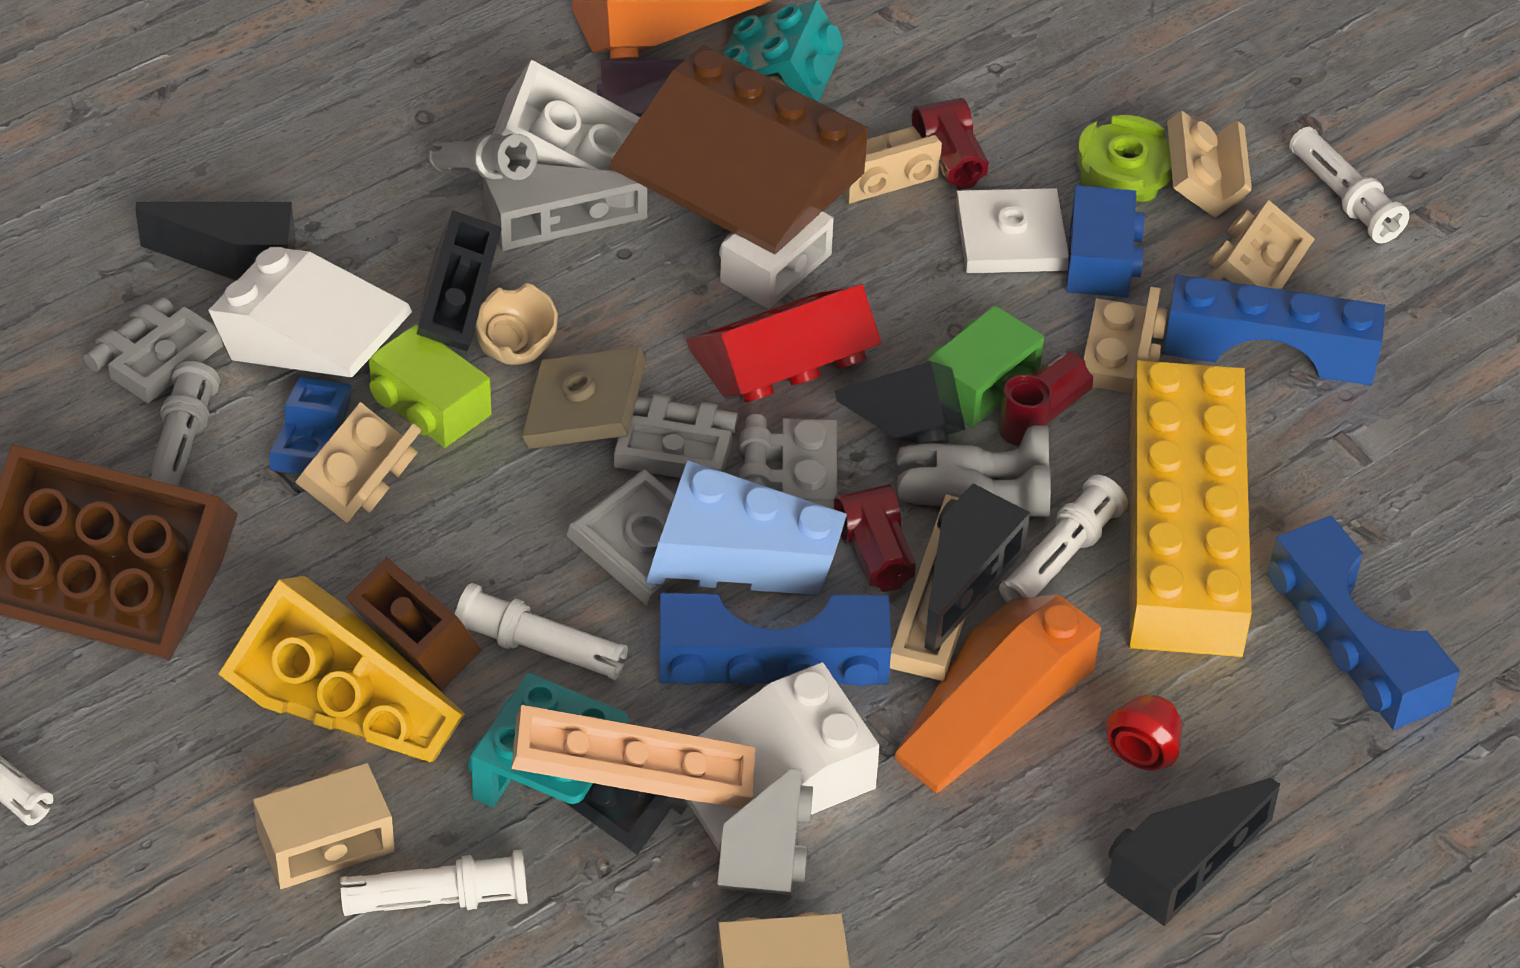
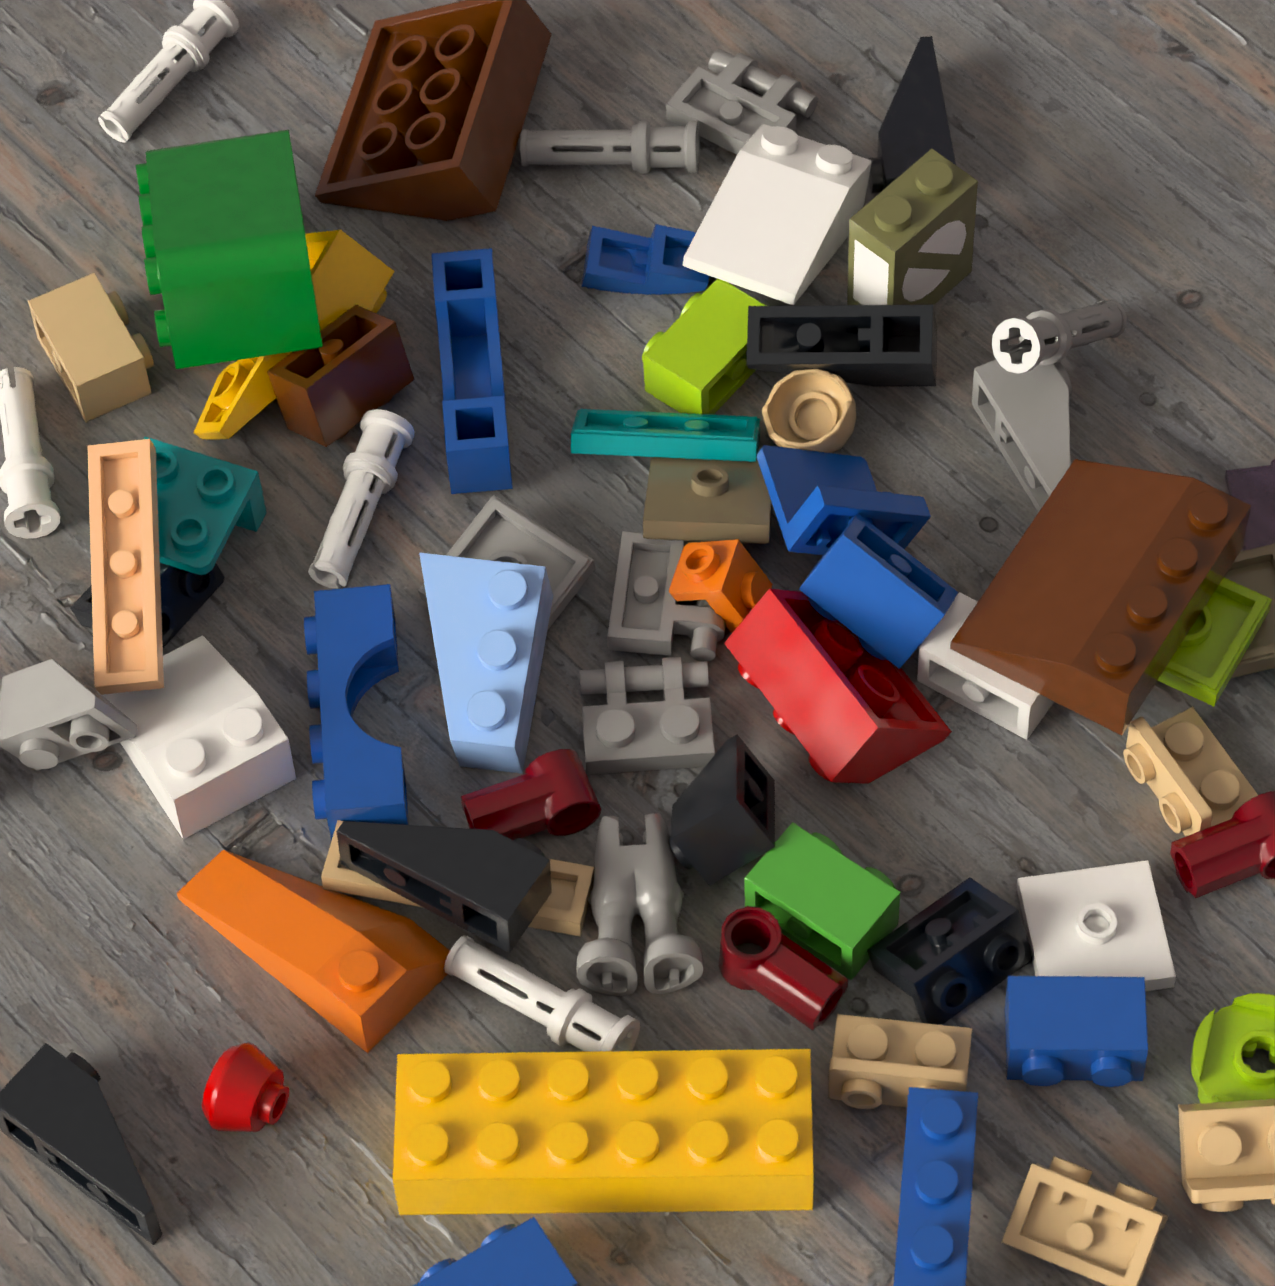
camera: 90 degrees right, 10 degrees up
(266, 651) = (227, 250): none -> green windscreen
(355, 461) = (586, 302): tan bracket -> none
(372, 224) = (914, 236): none -> olive brick
(490, 539) = (471, 371): none -> blue arch
(512, 424) = (666, 435): none -> teal tile
(564, 120) = (1151, 407): white slope -> none
(628, 322) = (824, 491): none -> blue bracket
(678, 391) = (722, 576): none -> orange bracket
(719, 286) = (878, 592): none -> blue brick
(1025, 291) = (953, 951): none -> black bracket

